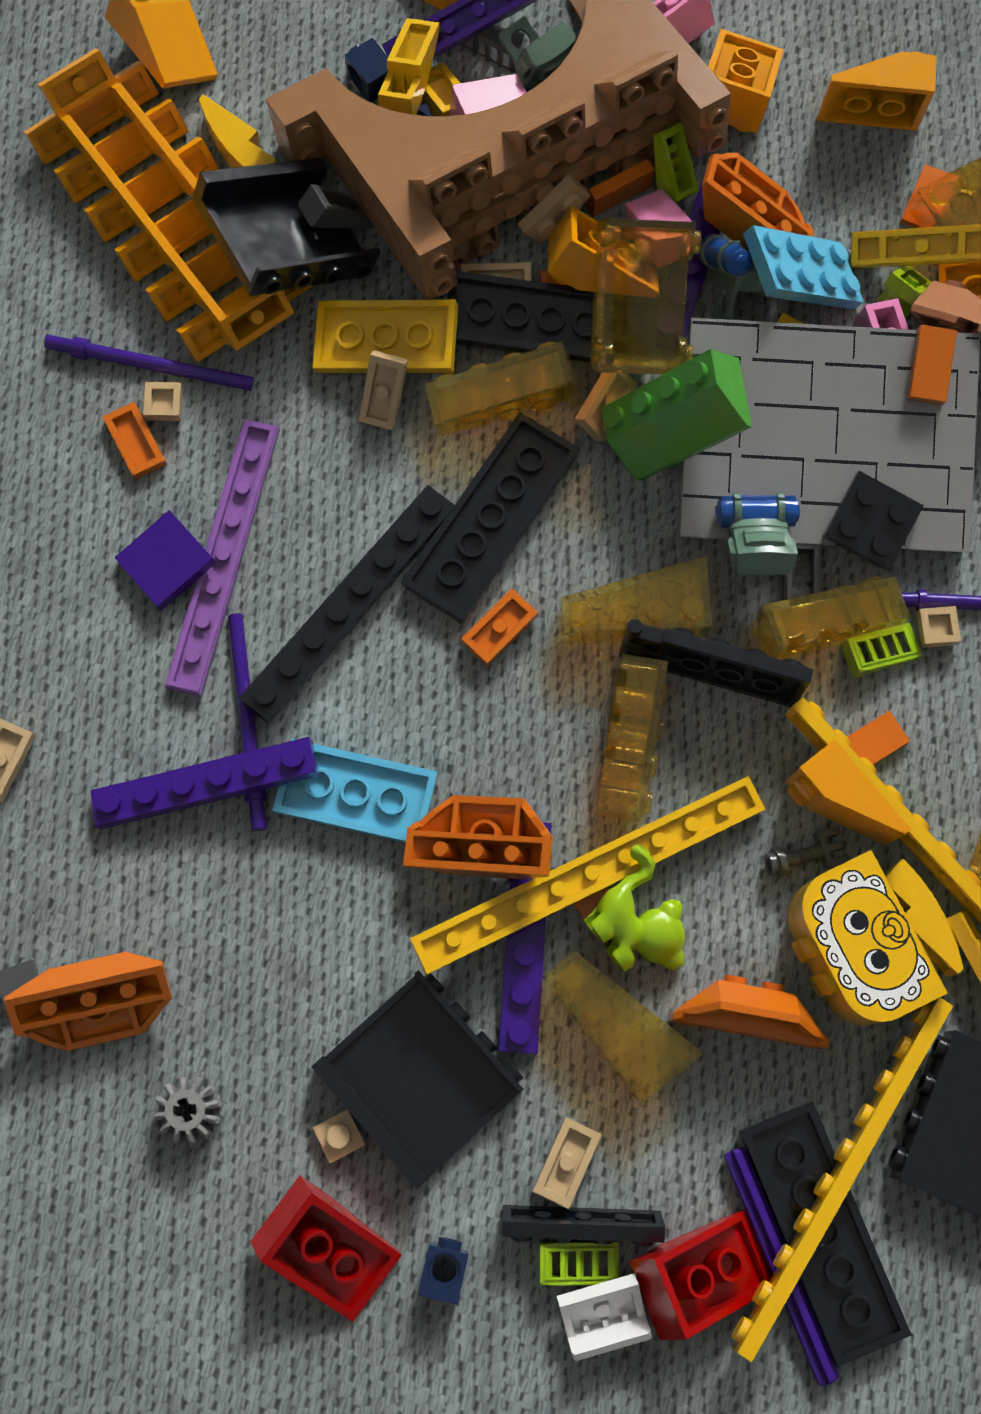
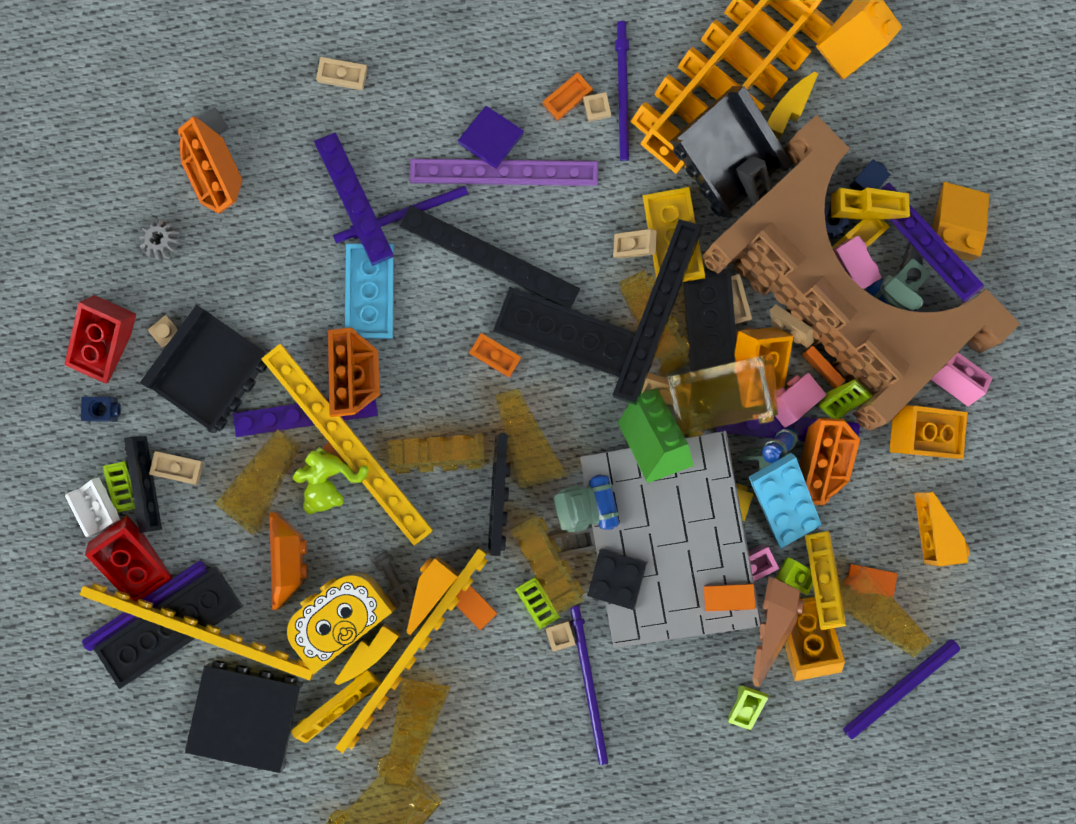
camera: 80 degrees right, 10 degrees up
(498, 370) = (657, 312): none -> black plate

